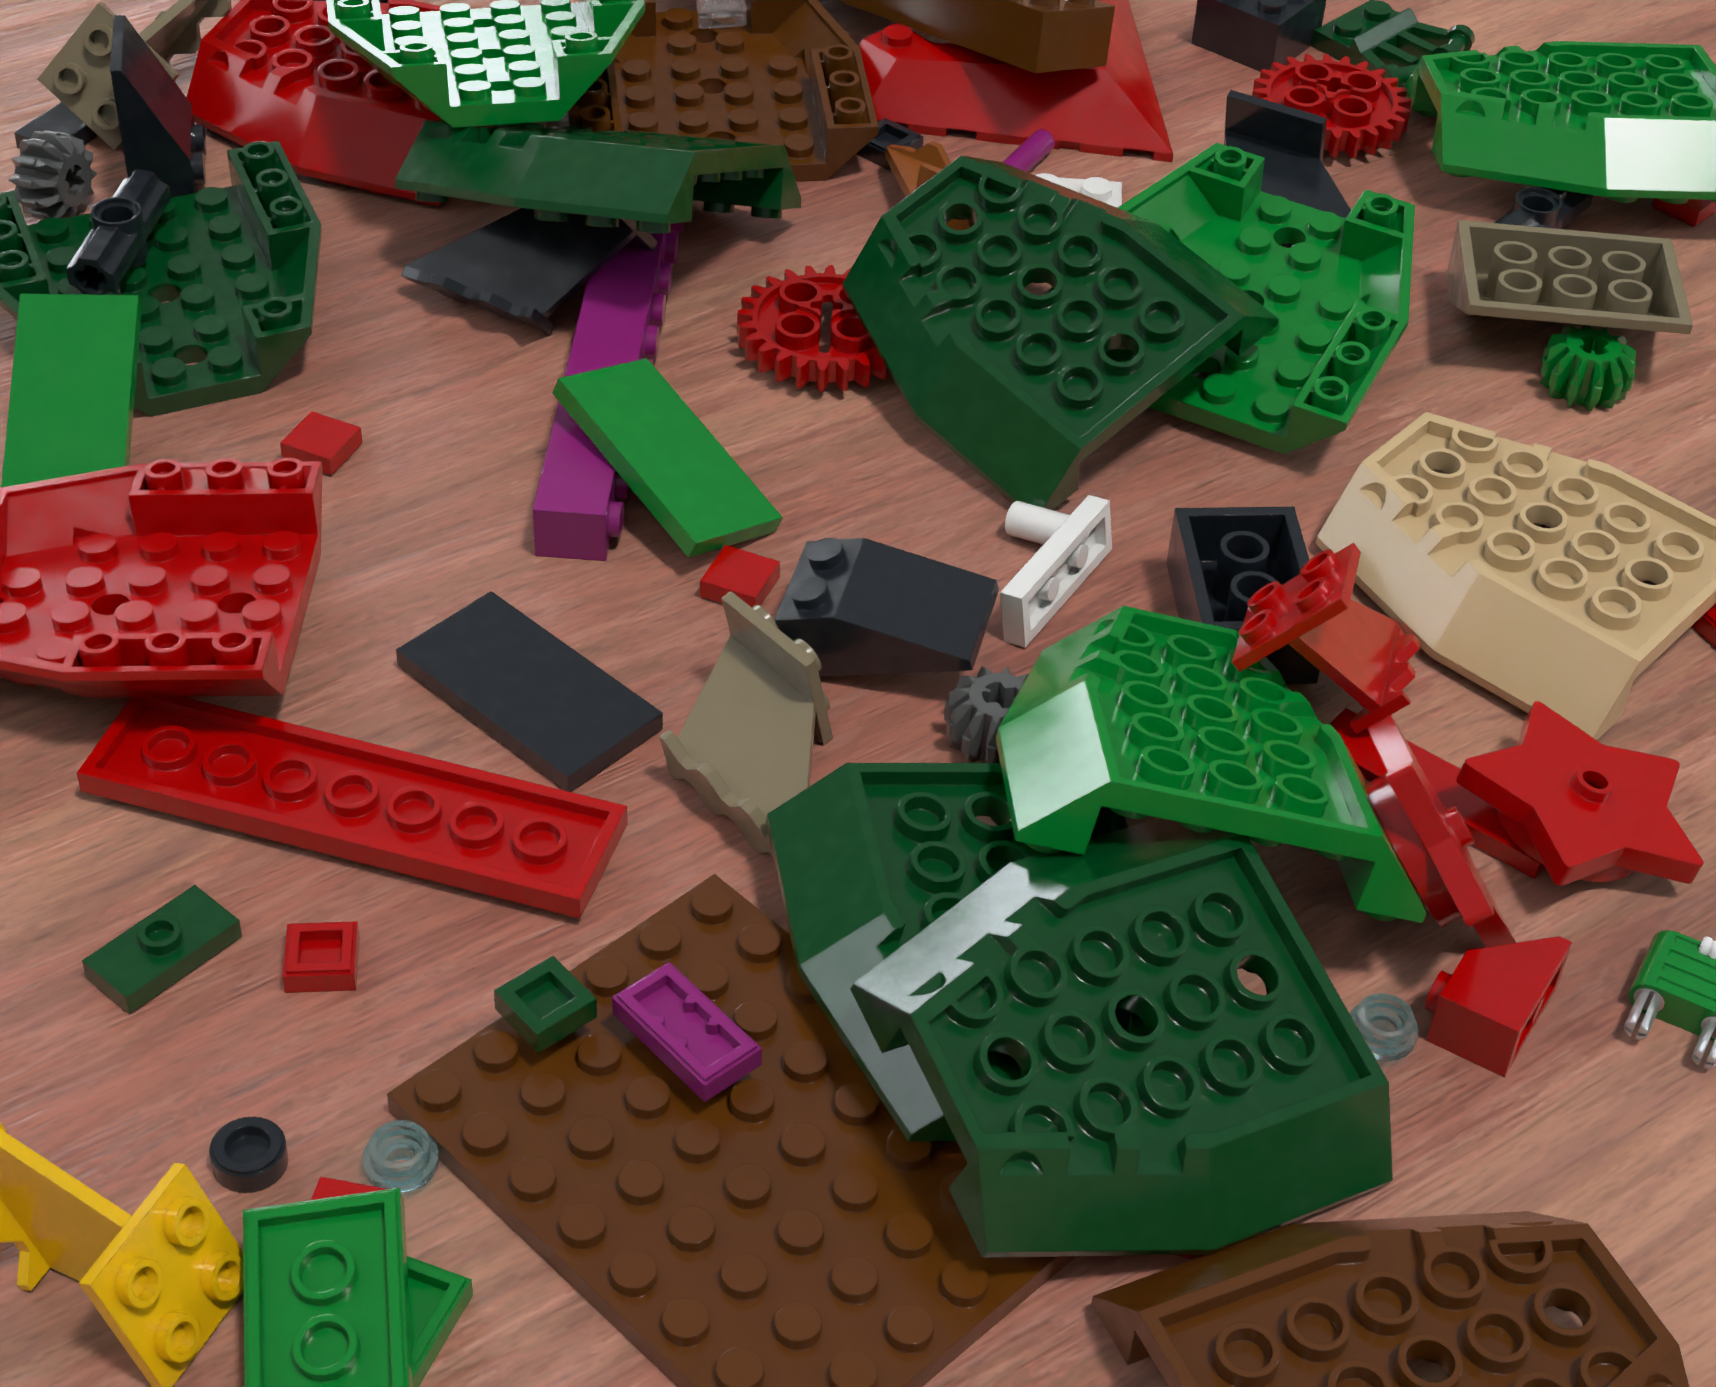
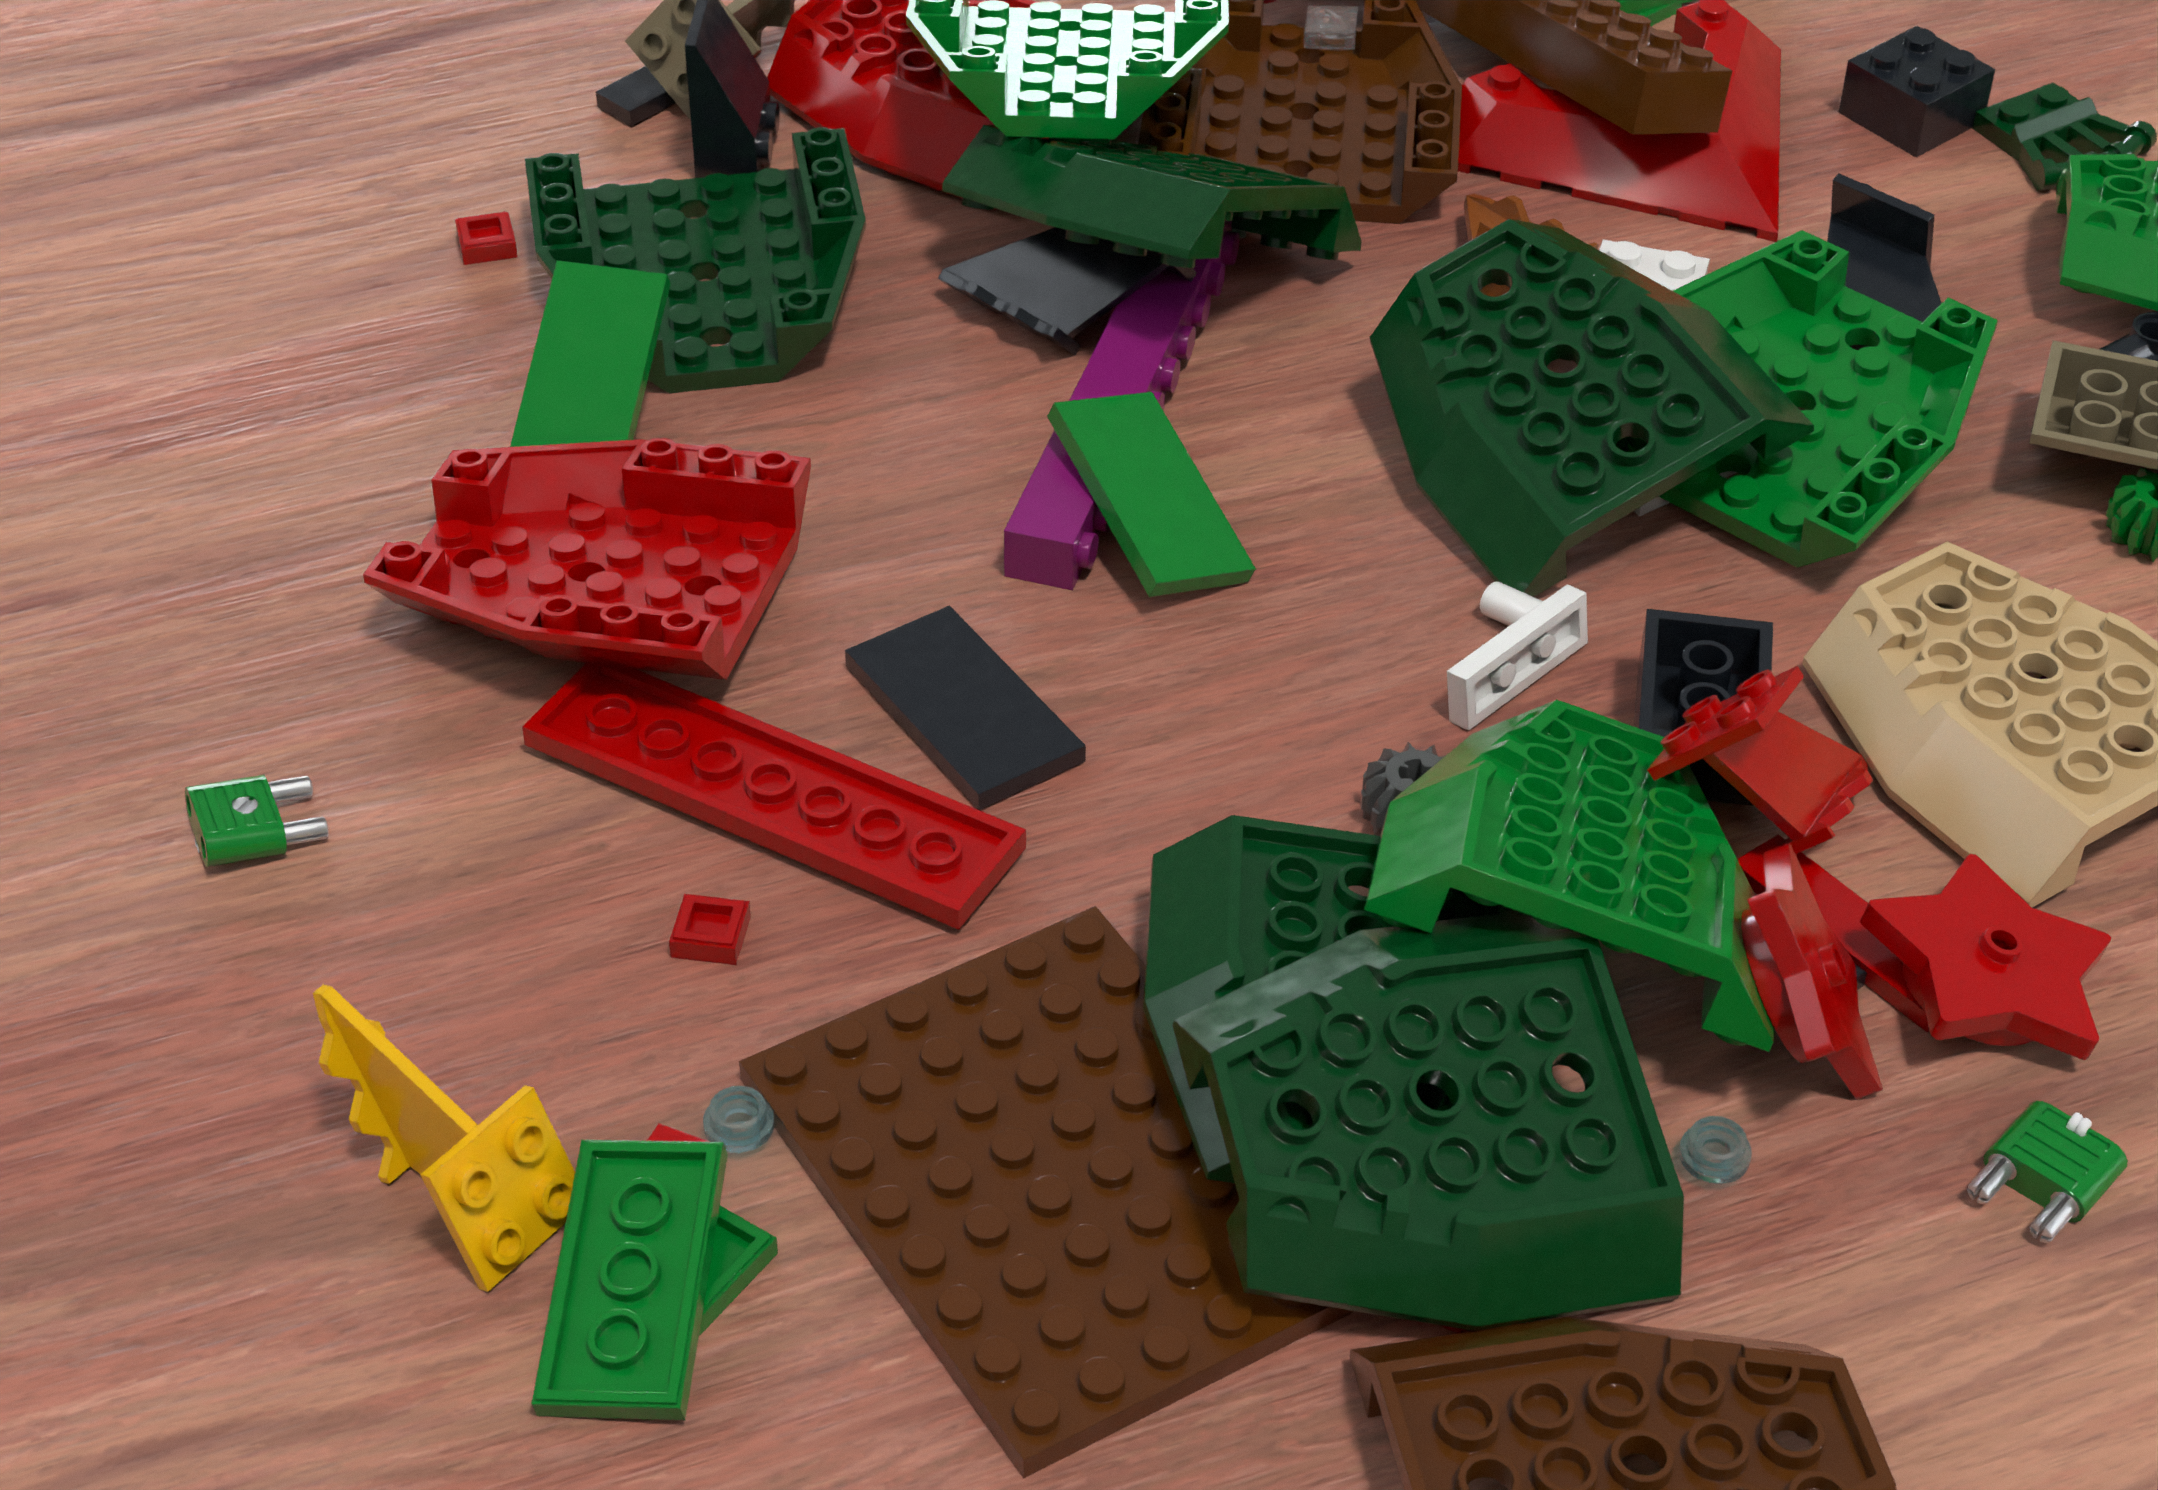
camera: 15 degrees right, 0 degrees up
(53, 175) = (621, 141): dark grey gear -> none
(118, 234) = (669, 208): black piece -> none
(162, 948) = (567, 900): dark green plate -> none
(248, 1154) = (604, 1096): black tile -> none
(322, 440) = (822, 438): red tile -> none
(545, 1004) = (898, 1000): dark green plate -> none
(687, 1031) = (1024, 1045): magenta plate -> none
(741, 572) = (1198, 624): red tile -> none
(752, 723) = (1166, 765): dark tan piece -> none
(784, 331) = (1312, 373): red gear -> none
(885, 609) = (1322, 674): black slope -> none
(889, 134) = (1476, 181): black tile -> none
(1031, 151) = (1615, 220): magenta piece -> none
(1357, 102) = (1975, 195): red gear -> none
(1495, 1000) = (1840, 1141): red slope -> none

